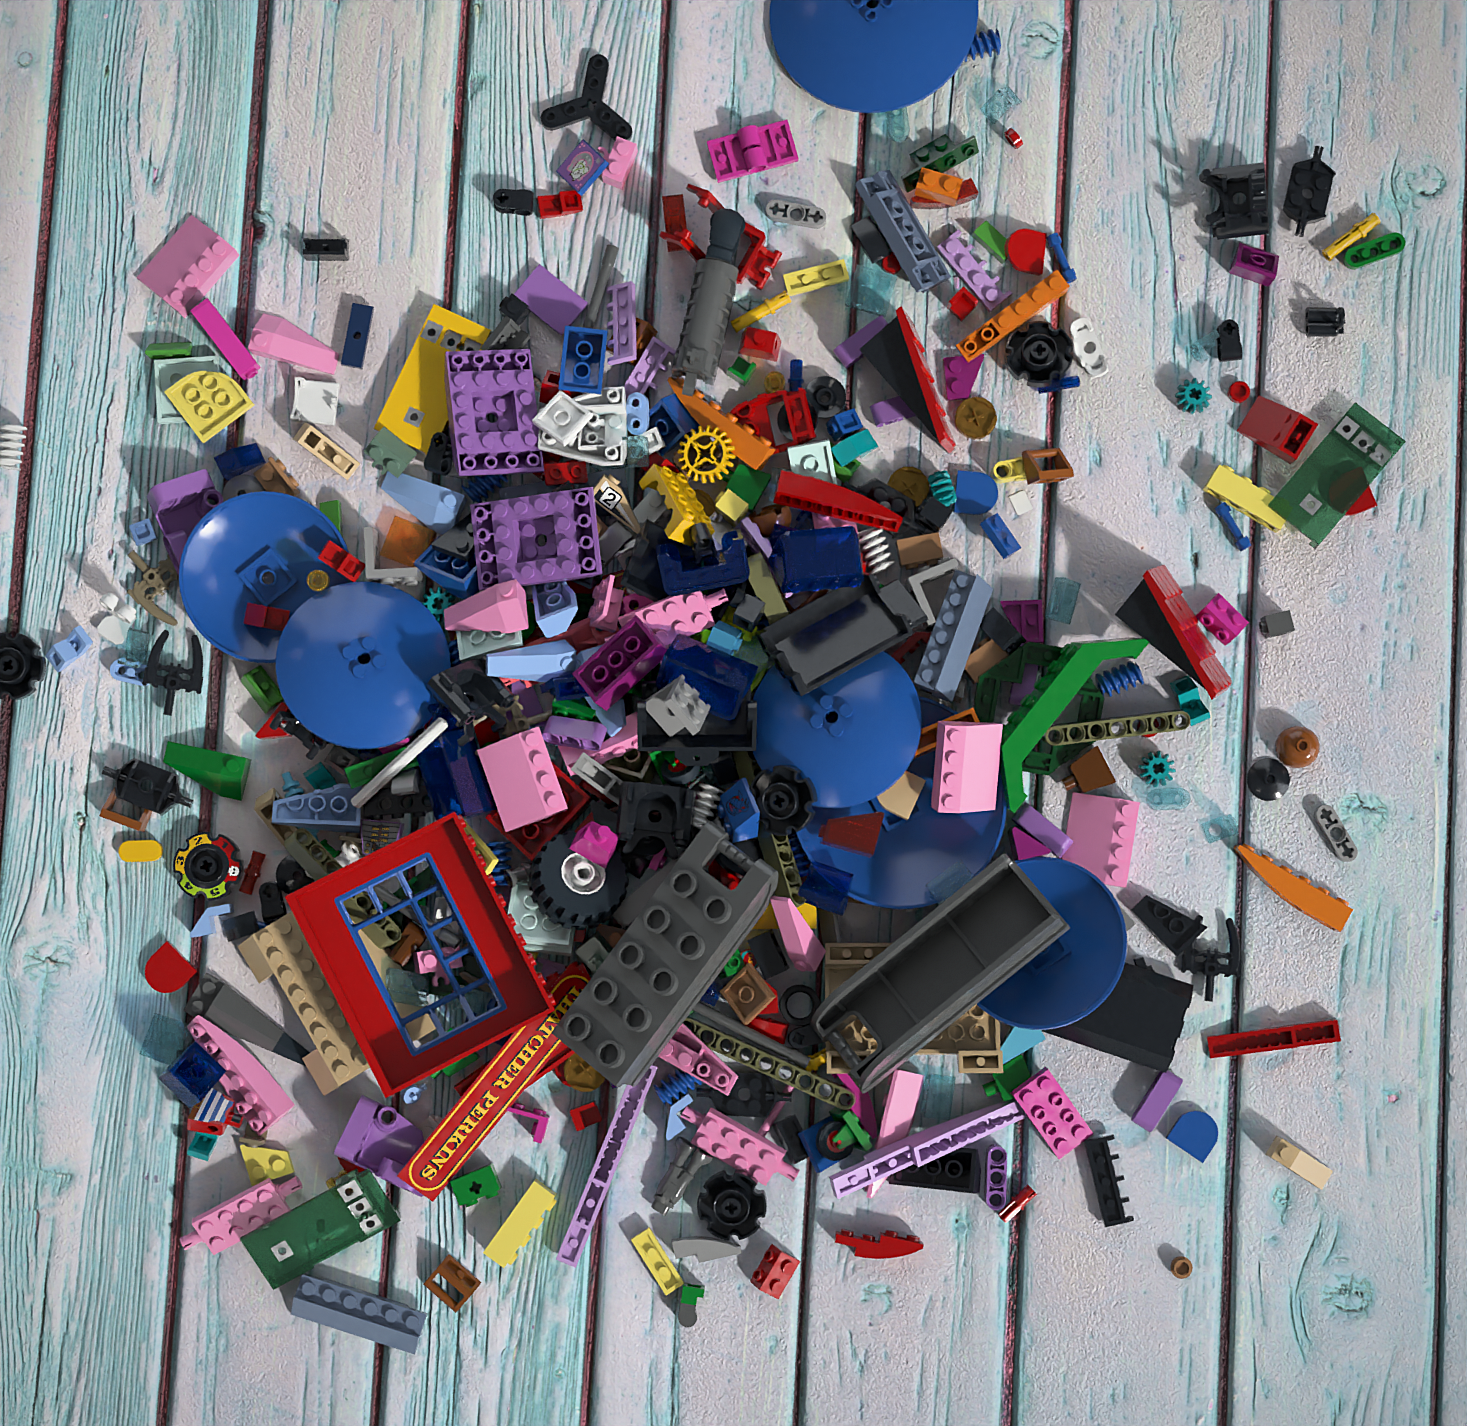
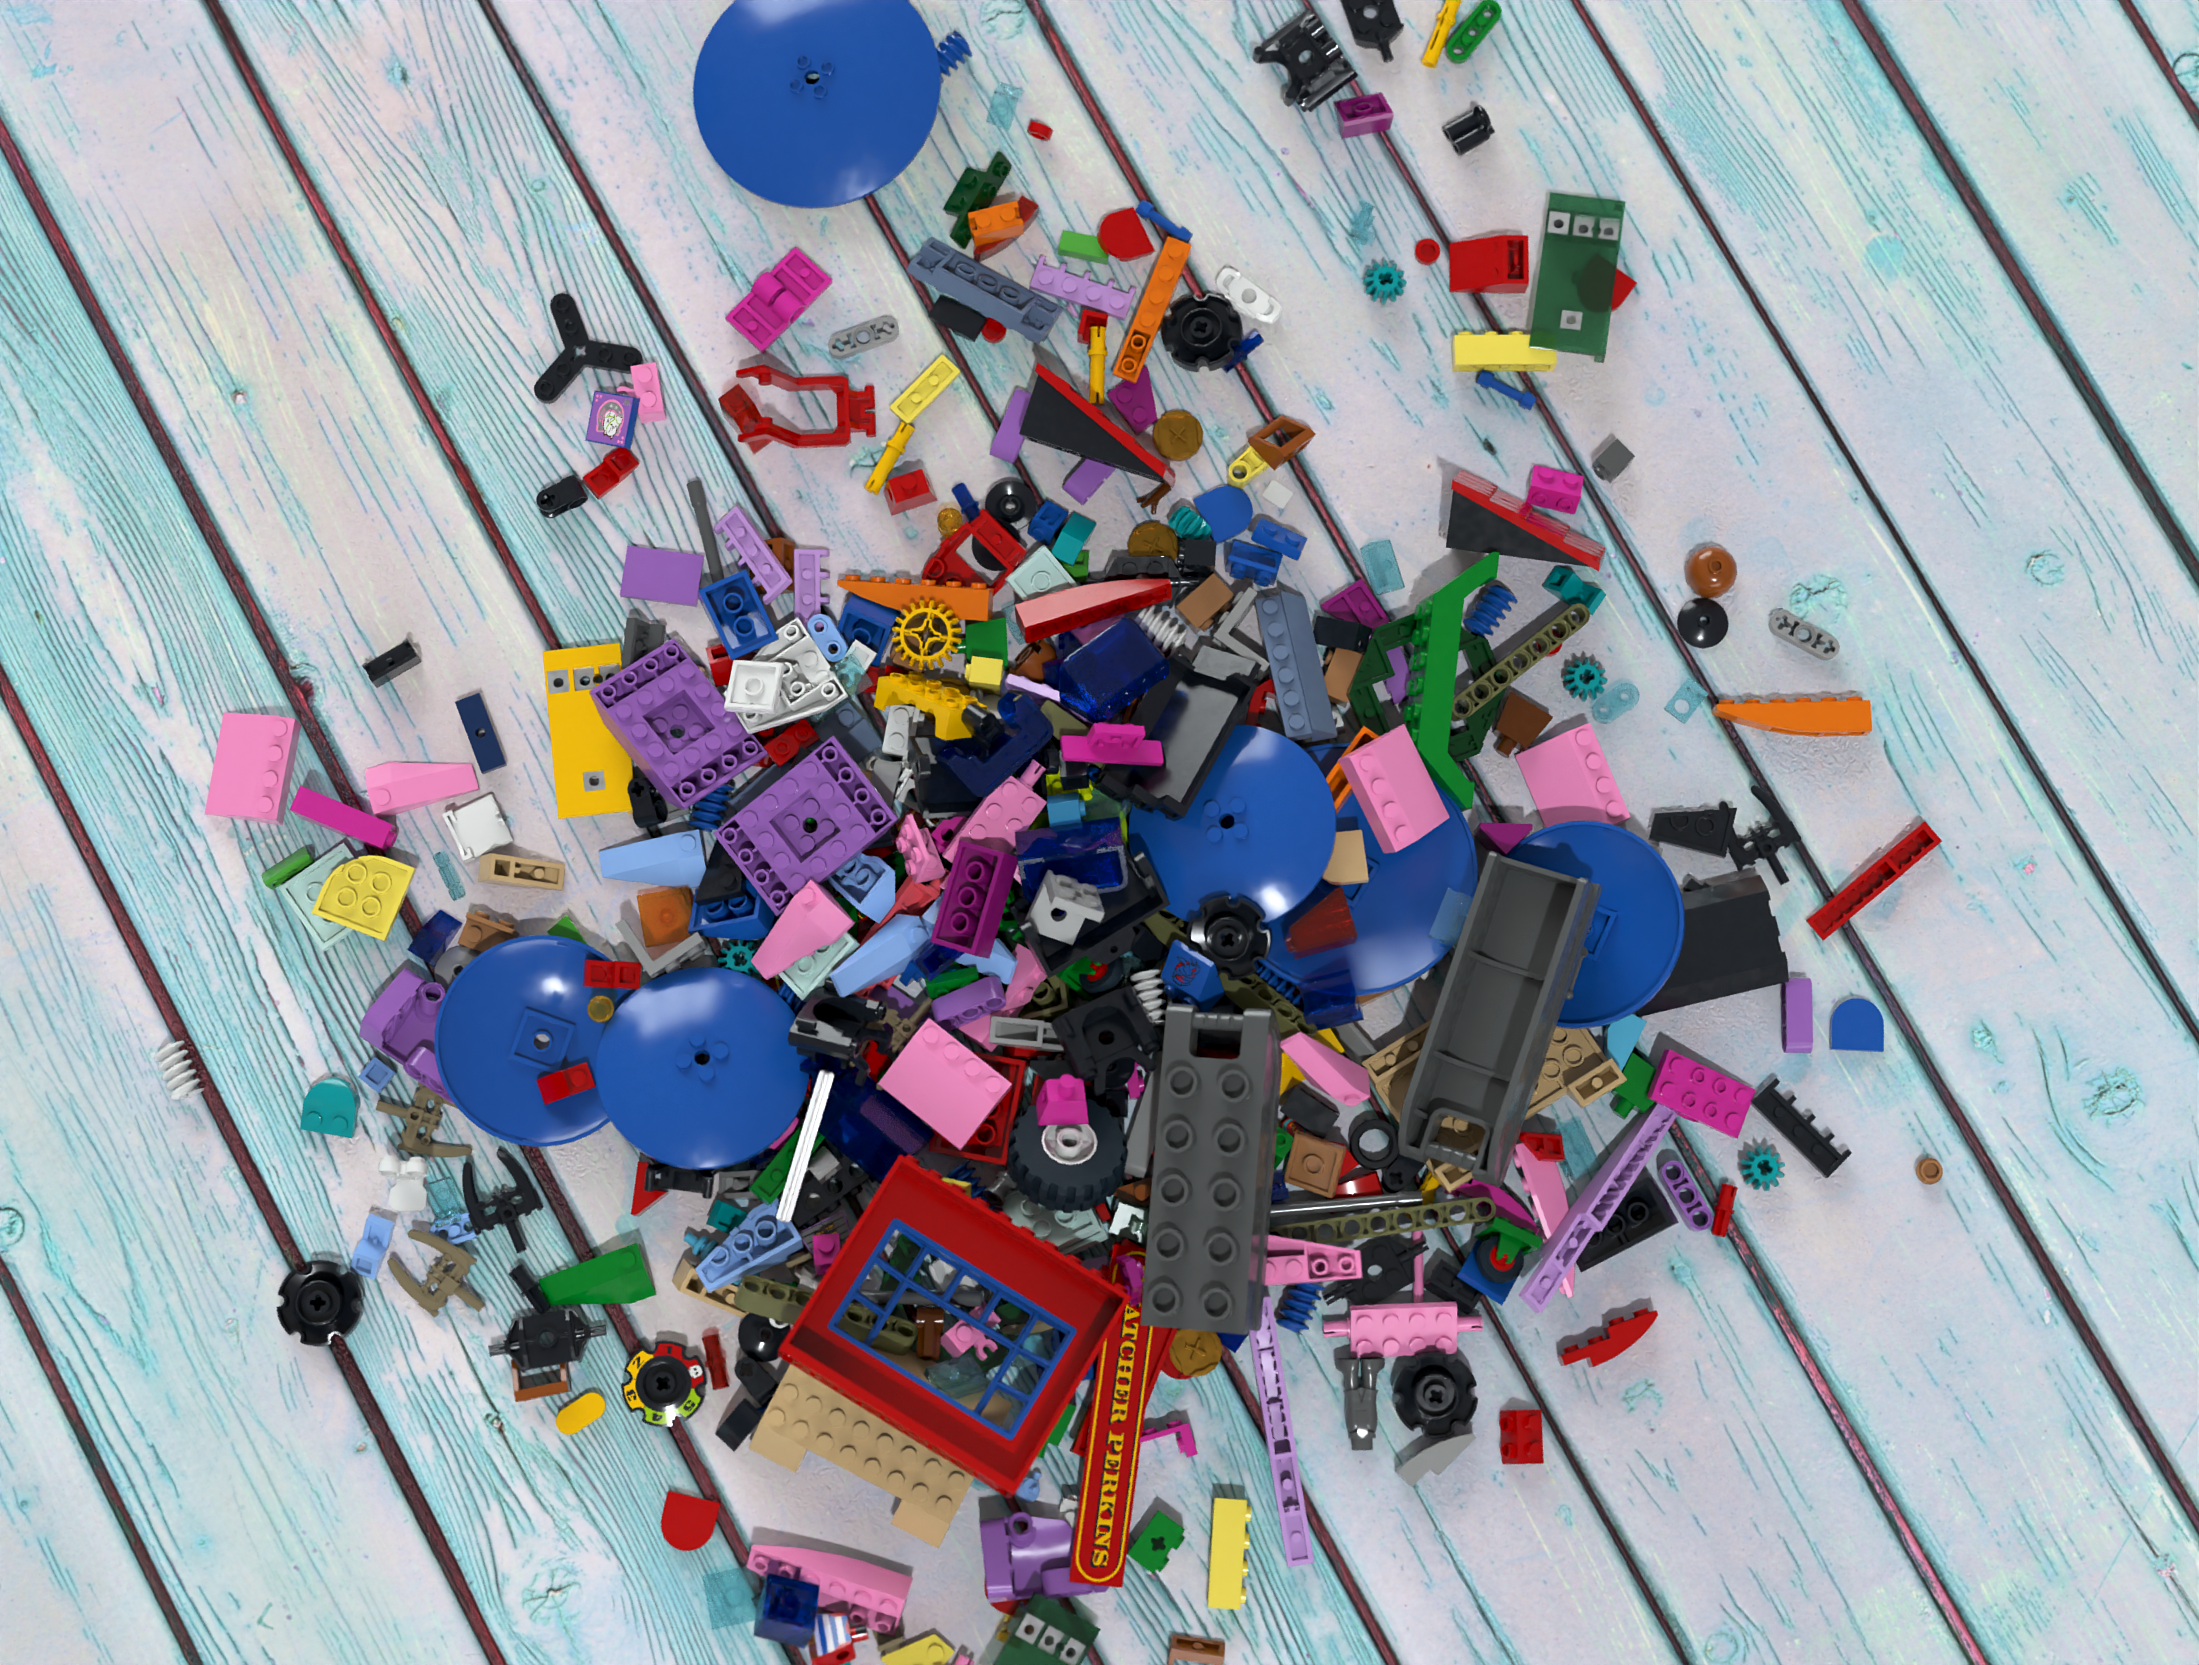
camera: 40 degrees left, 5 degrees down
(98, 536) = (331, 1108): none -> teal slope
(105, 706) = (447, 1282): none -> dark tan bar
(157, 744) = (530, 1289): none -> black axle
(206, 923) = (700, 1448): light blue slope -> none
(236, 1016) = (799, 1524): dark grey plate -> none
(262, 688) = (606, 1163): bright green slope -> none
(276, 422) = (449, 875): none -> clear light blue axle
(370, 843) = (825, 1251): none -> dark pink bracket
(390, 452) = (592, 833): sand green brick -> none
(514, 309) = (630, 606): black brick -> none
(568, 993) = (1131, 1277): none -> magenta wing
(585, 1115) = (1225, 1397): red panel -> none
(612, 498) = (860, 739): slope -> none
(657, 1261) = (1394, 1502): light yellow plate -> none
(675, 1123) = (1322, 1347): light blue slope -> none
(687, 1312) = (1454, 1527): leg -> none
(709, 304) = (833, 480): dark grey piece -> none
(741, 371) = (907, 530): green panel -> none
(785, 613) = (1112, 745): none -> dark pink bracket
(871, 290) = (990, 370): clear light blue plate -> none
(898, 122) = (910, 183): clear light blue plate -> none
(916, 1082) = (1544, 1146): none -> red tile
(930, 452) = (1154, 498): none -> reddish brown bar
(954, 324) = (1097, 365): none -> yellow pin
(972, 542) = (1253, 564): none -> blue bracket
(1026, 966) = (1584, 953): none -> dark grey hinge
(1042, 830) = (1508, 810): medium lavender beam -> none
(1071, 1190) = (1769, 1163): none -> teal gear
(1229, 346) = (1388, 210): black piece -> none
(1298, 1162) = (1977, 990): tan slope -> none

